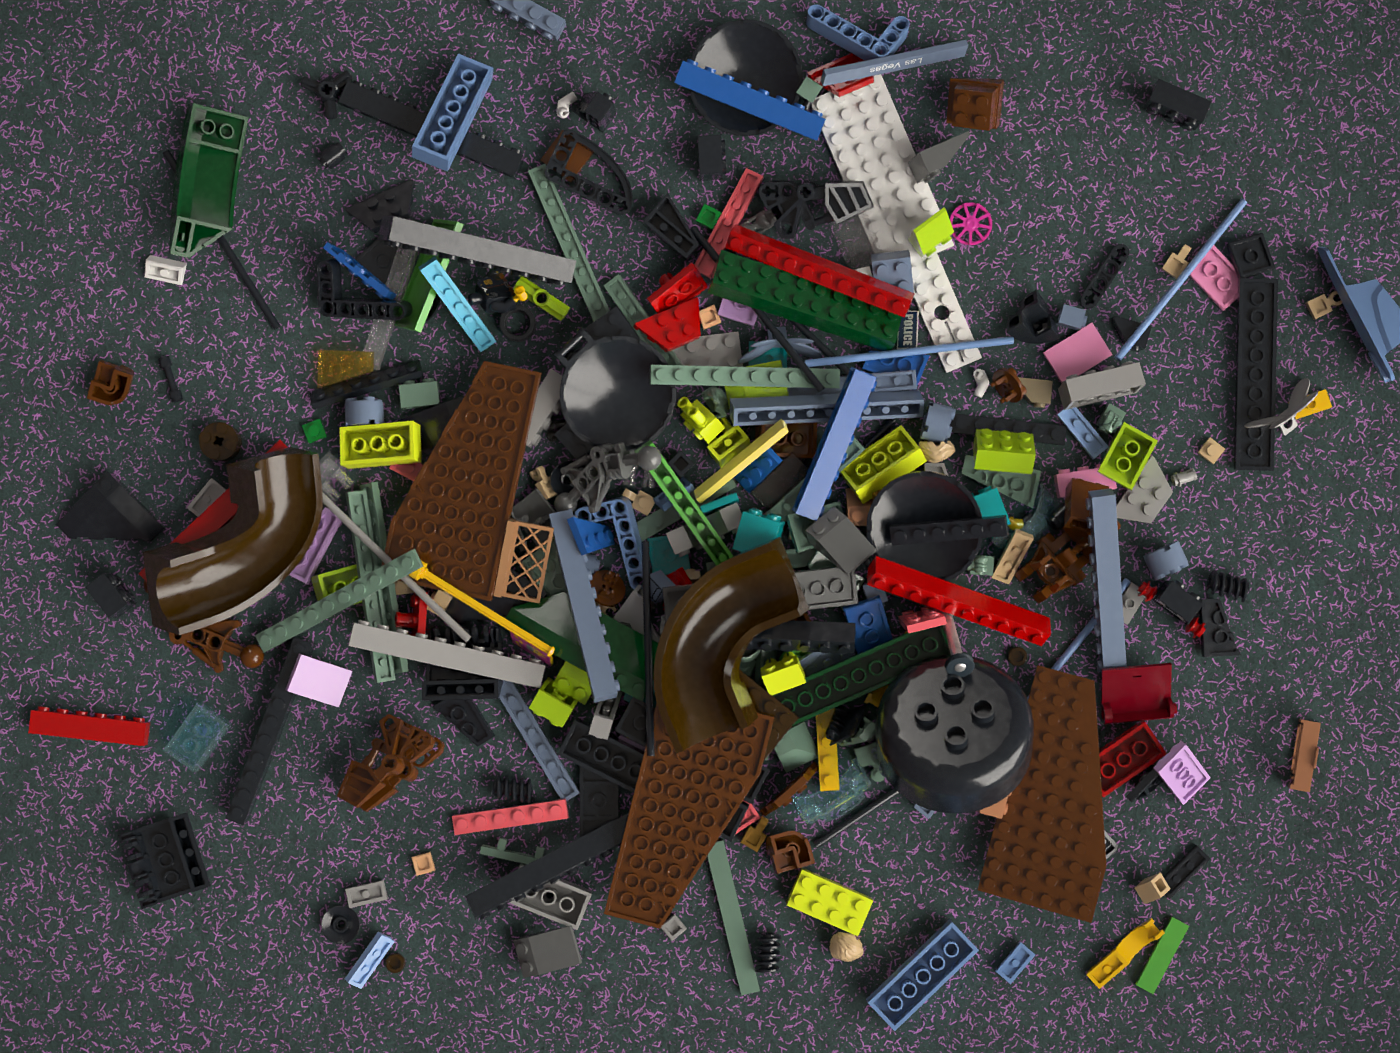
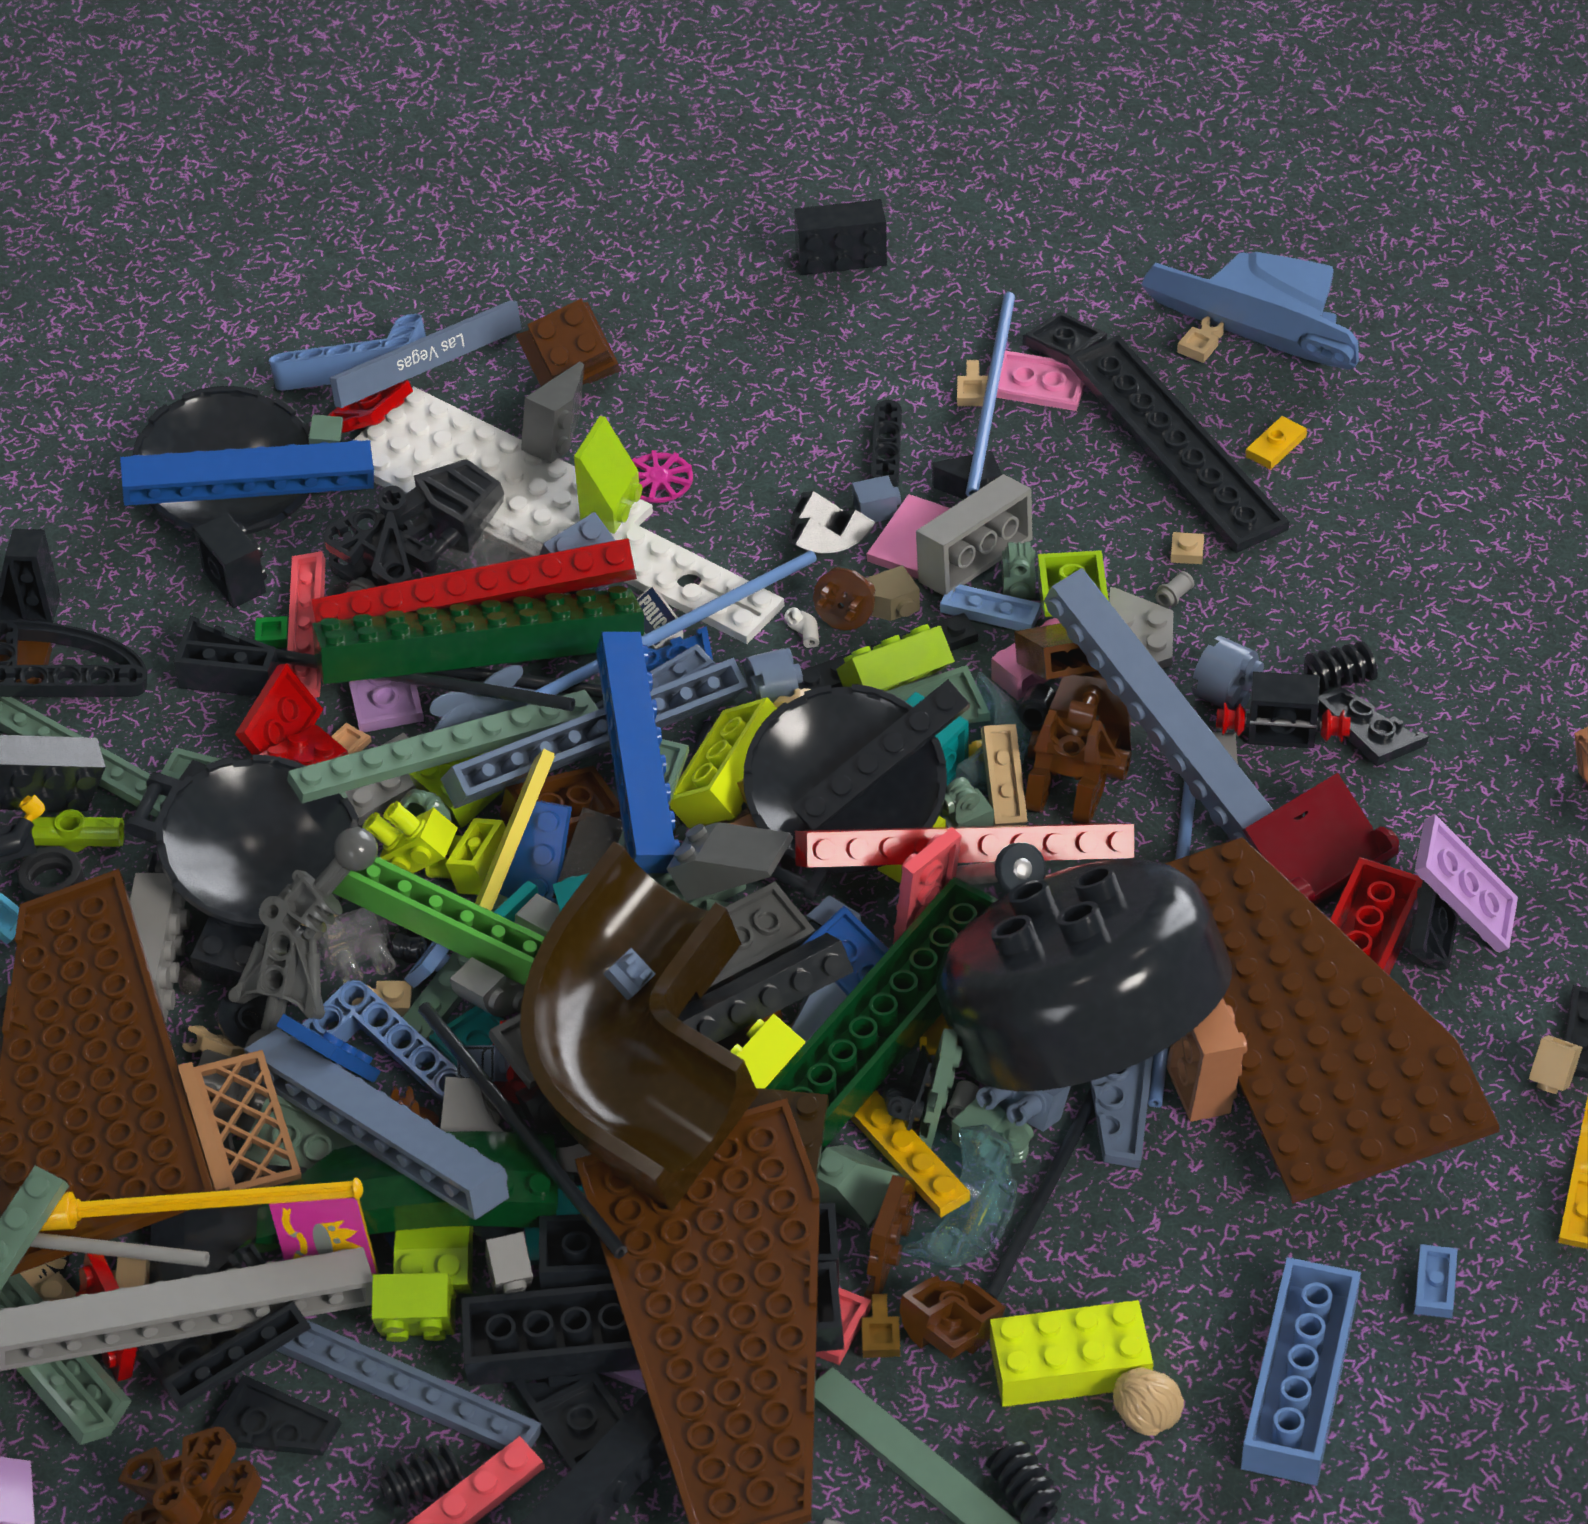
camera: 30 degrees left, 40 degrees down
(741, 606) = (629, 973): none -> sand blue tile
(1297, 402) = (1251, 440): light grey piece -> none

